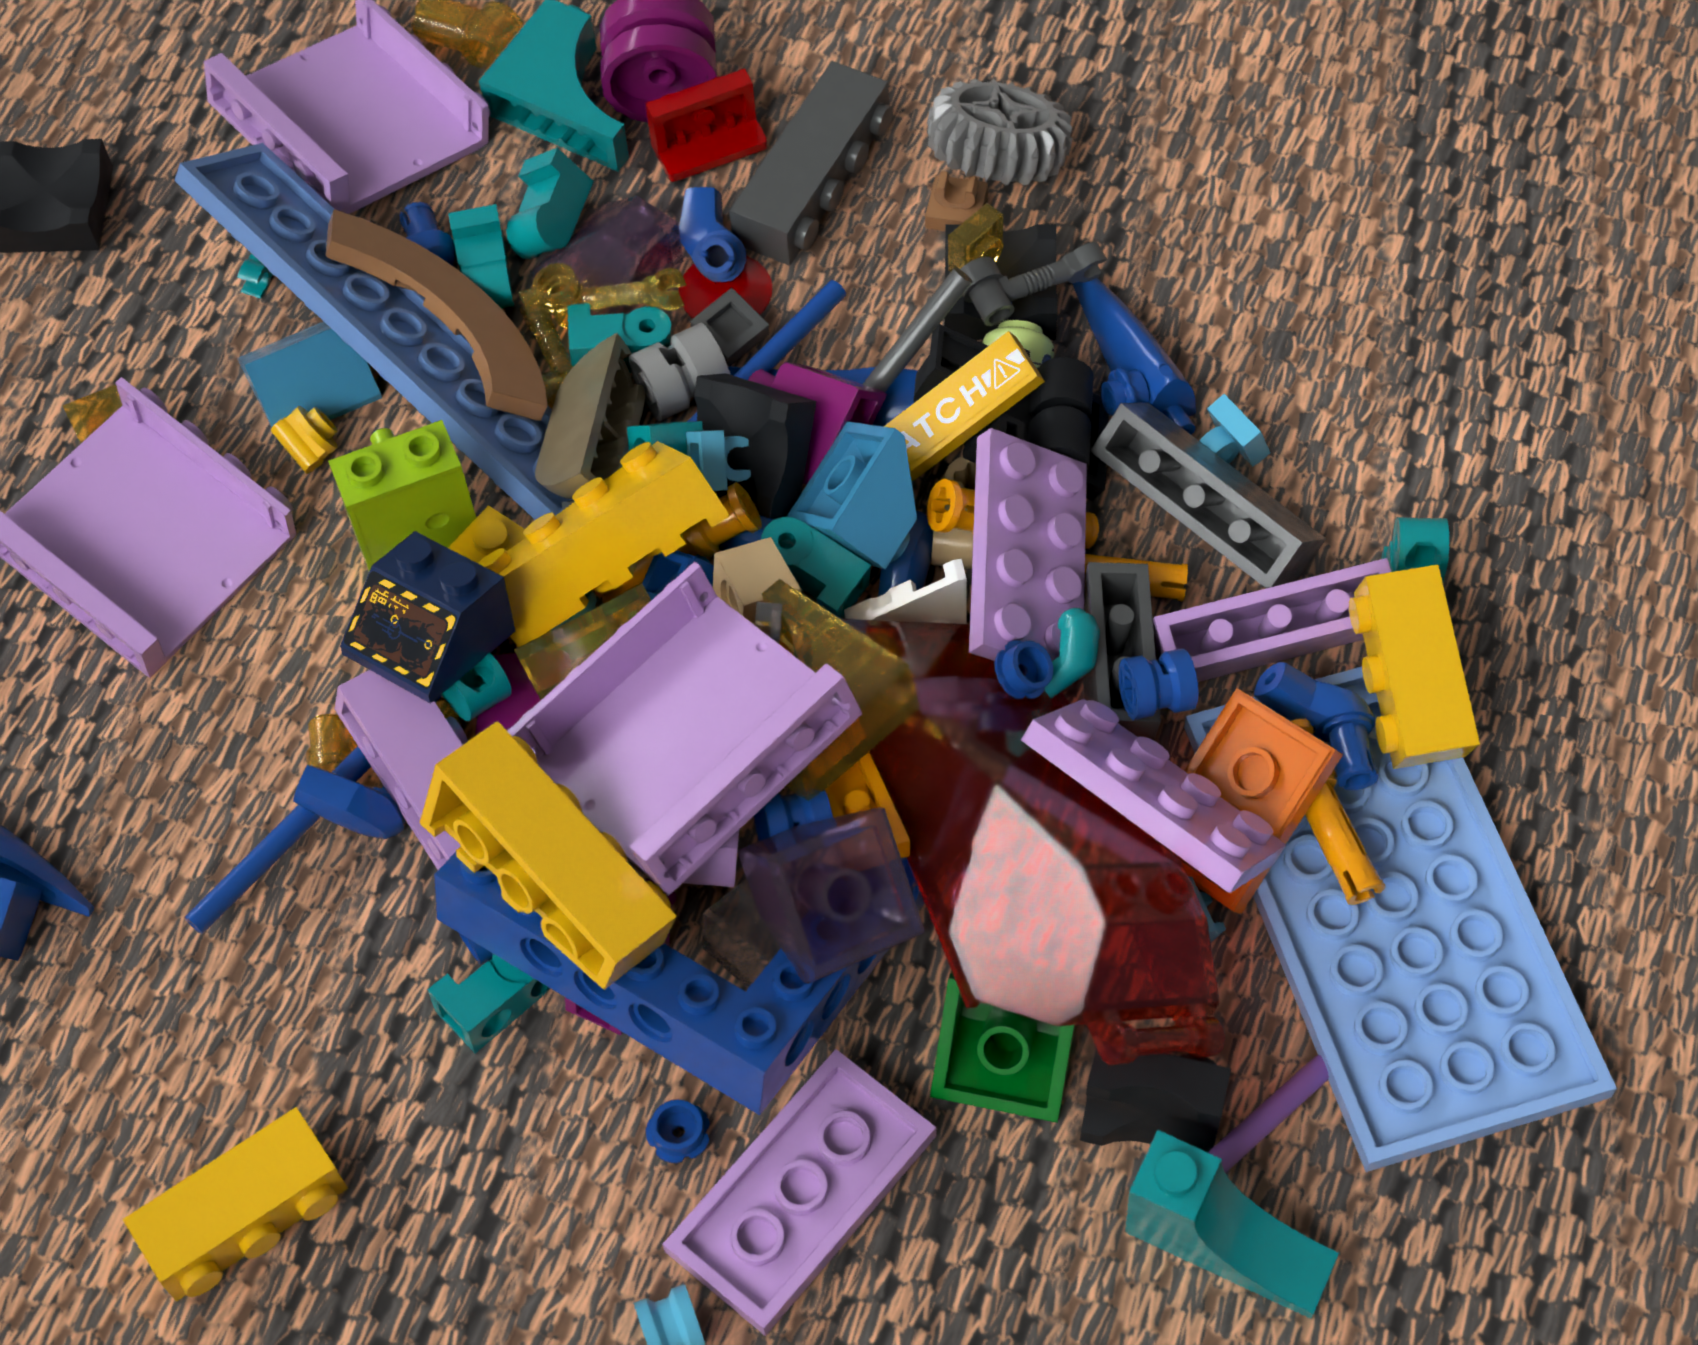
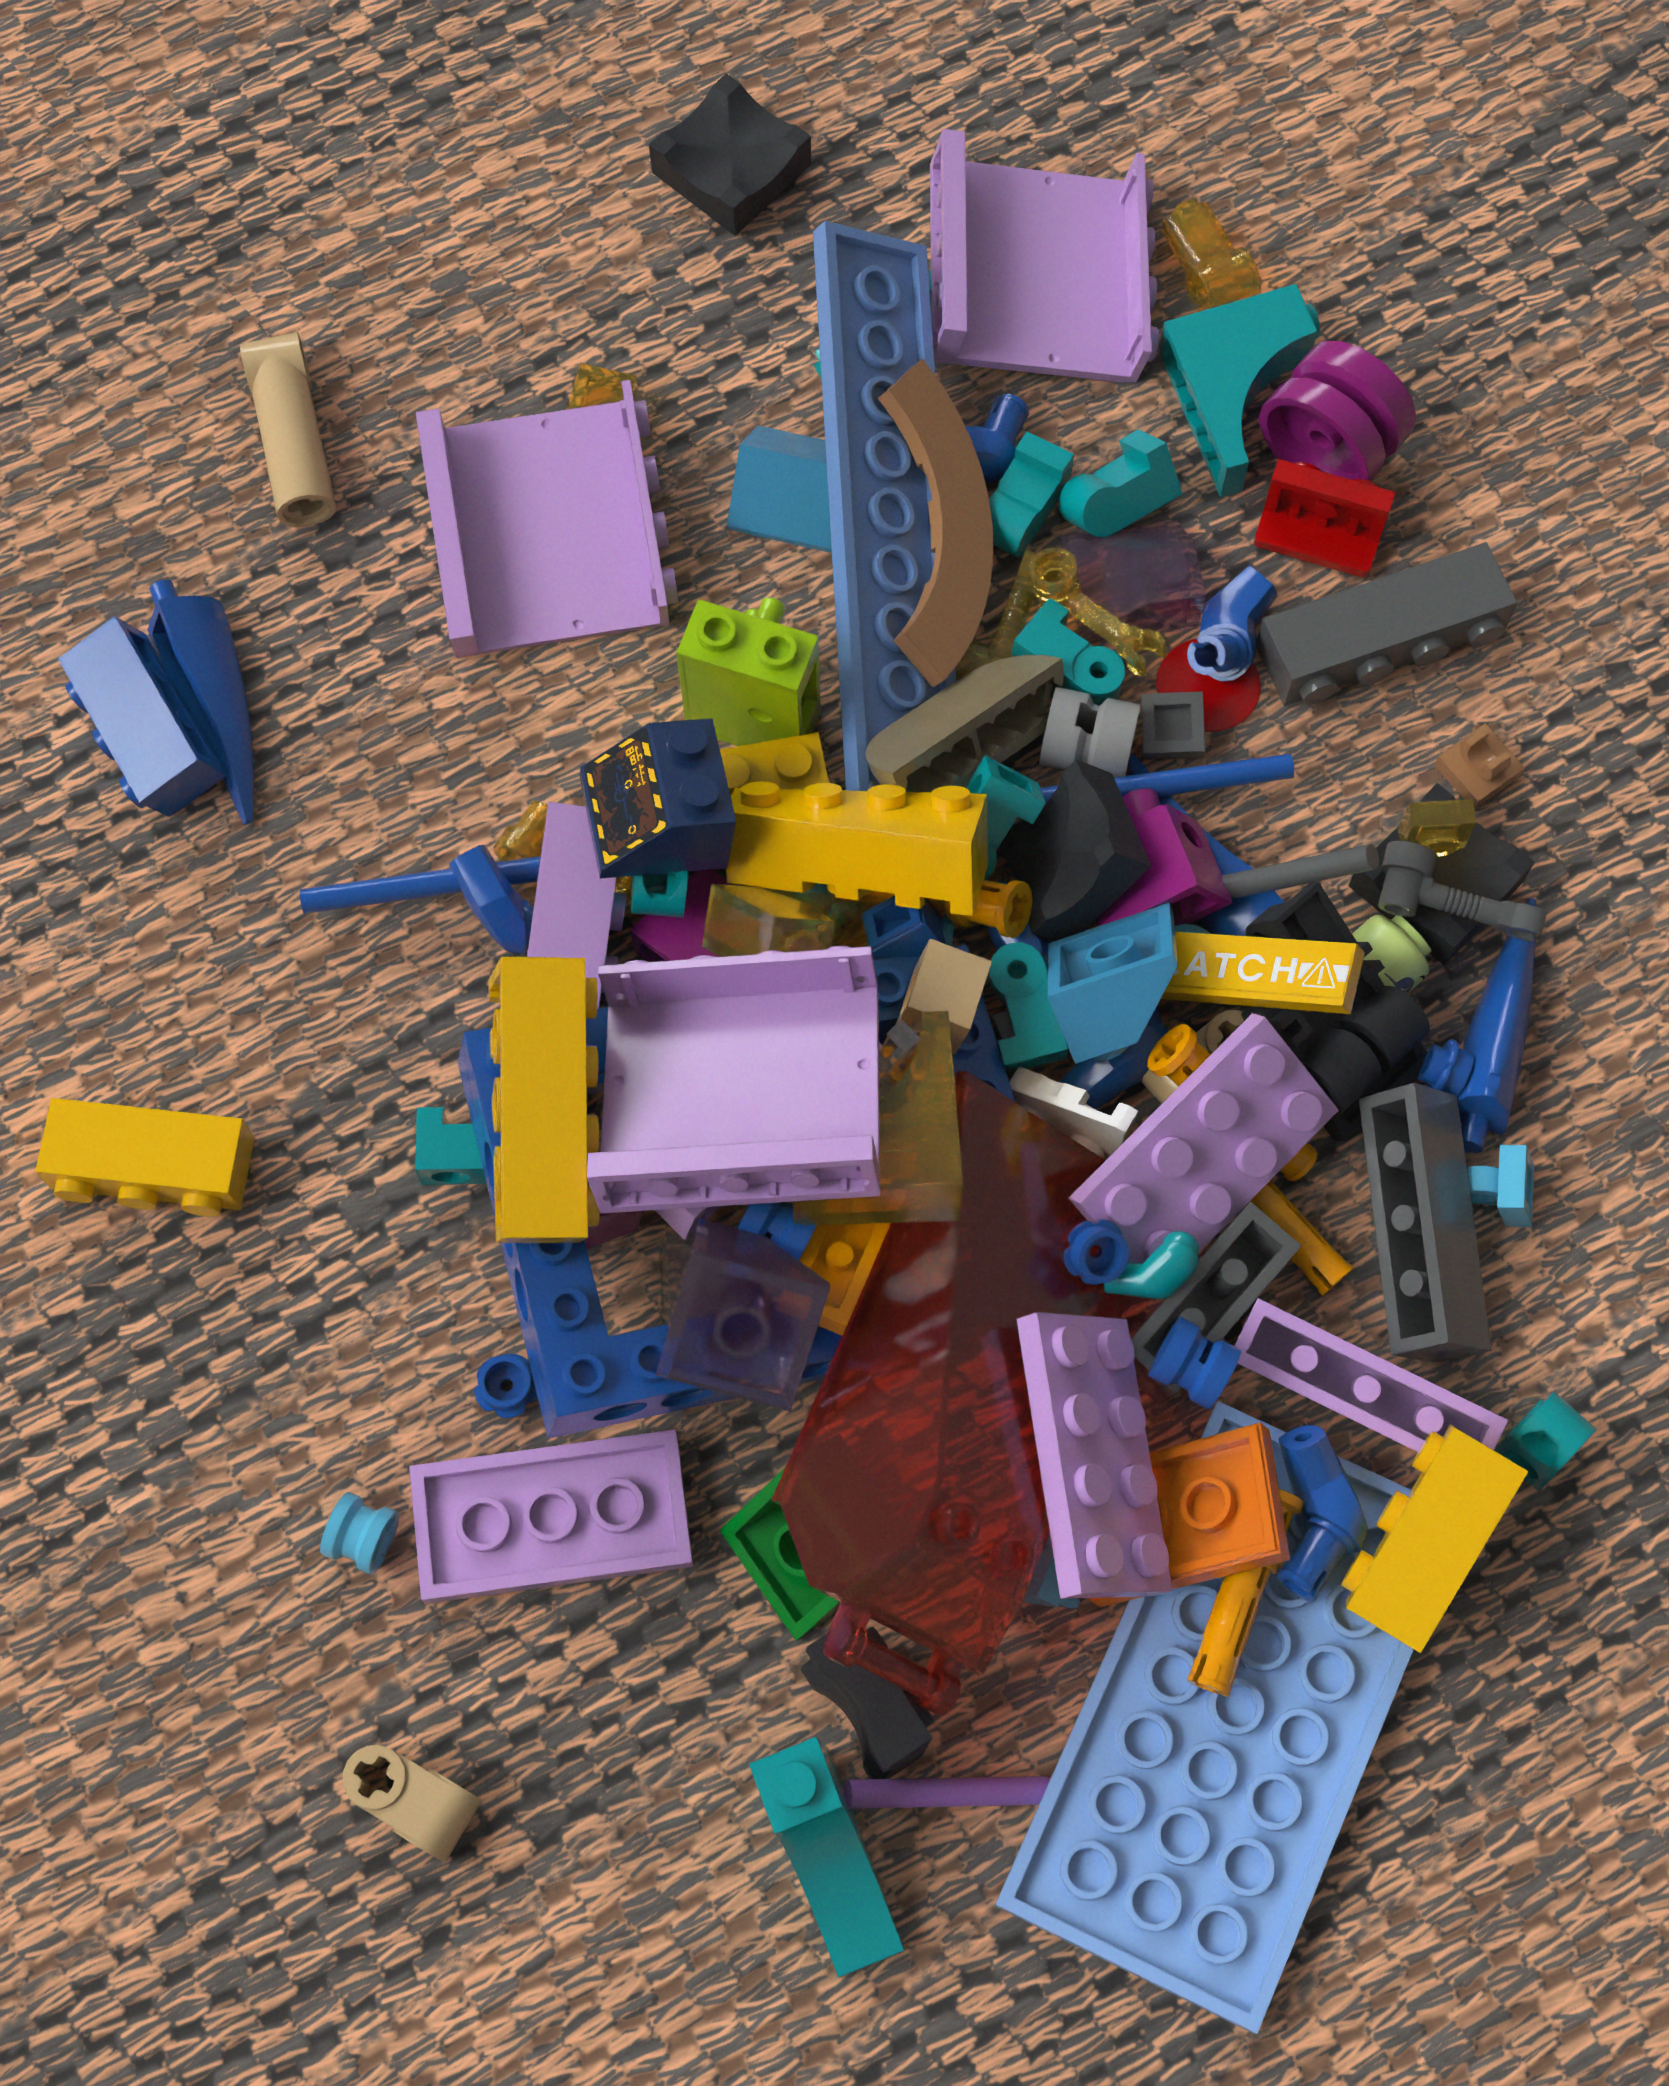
camera: 40 degrees right, 10 degrees up
(306, 437) = (747, 545): yellow plate -> none
(710, 453) = (1018, 844): medium azure tile -> none
(999, 131) = (1571, 731): light grey gear -> none

